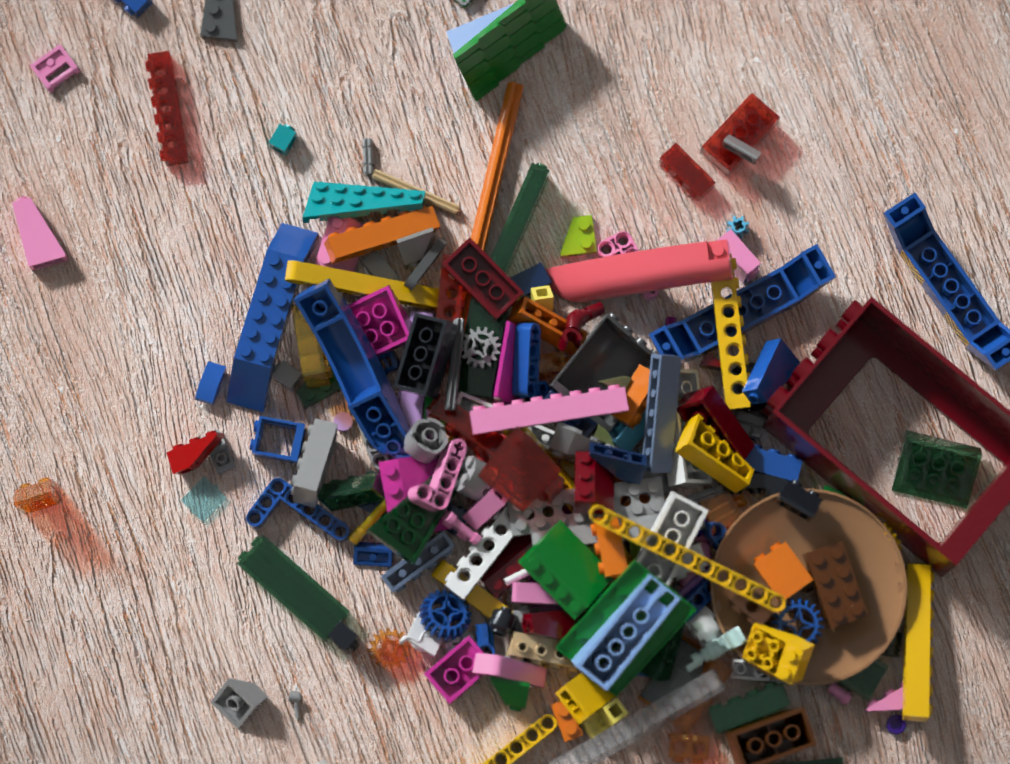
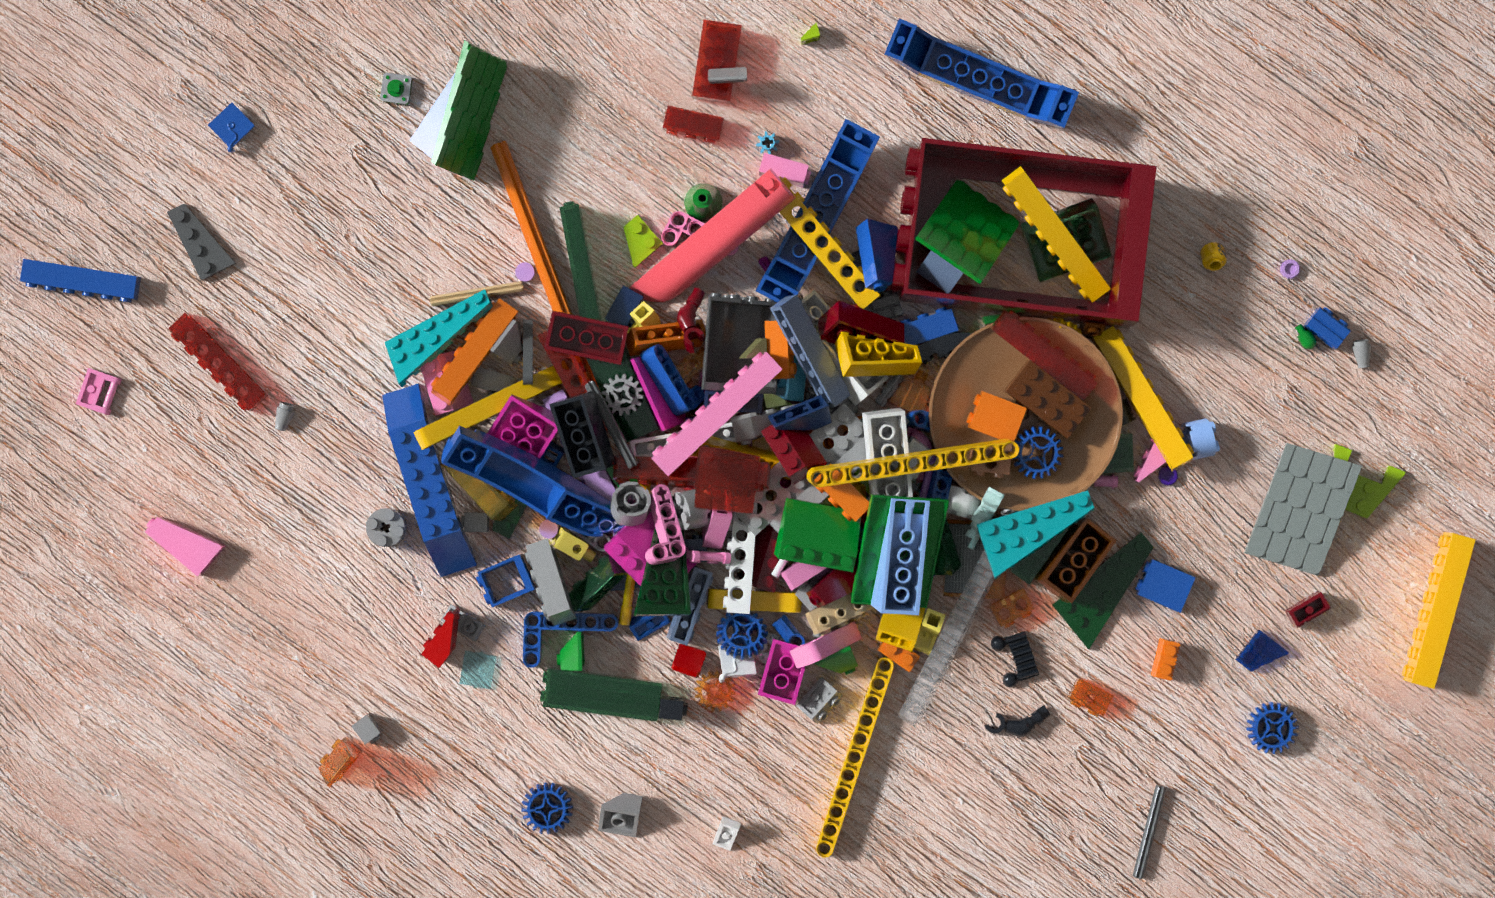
camera: 30 degrees left, 10 degrees up
(78, 486) = (367, 729): none -> light grey brick
(186, 645) = (539, 808): none -> blue gear
(190, 185) = (284, 415): none -> light grey cone
(204, 321) = (375, 526): none -> light grey brick
(210, 383) = (416, 571): blue slope -> none
(283, 139) = (334, 323): teal brick -> none
(293, 536) = (572, 654): none -> slope
(295, 697) = (665, 781): light grey hand -> none
(350, 439) = (567, 540): none -> light yellow torso
(368, 156) = (415, 289): light grey axle -> none
(385, 608) = (688, 660): none -> red piece
(467, 201) = (525, 272): none -> lavender tile
(472, 717) = (819, 700): none -> light grey bracket
(502, 621) = (793, 609): black head -> none
(652, 236) = (703, 210): none -> green cone
(710, 362) = (820, 274): dark red slope -> none
(743, 684) = (1026, 531): none -> teal wing
(778, 653) = (1037, 488): yellow slope -> none
(799, 500) = (972, 350): black slope -> none
(831, 164) = (811, 35): none -> lime slope
(852, 403) = (963, 237): none -> green piece
(856, 545) = (1044, 355): none -> clear red brick
(911, 554) = (1091, 329): none -> reddish brown slope
(931, 455) = (1056, 234): none -> yellow brick
(945, 709) = (1201, 438): none -> light blue brick

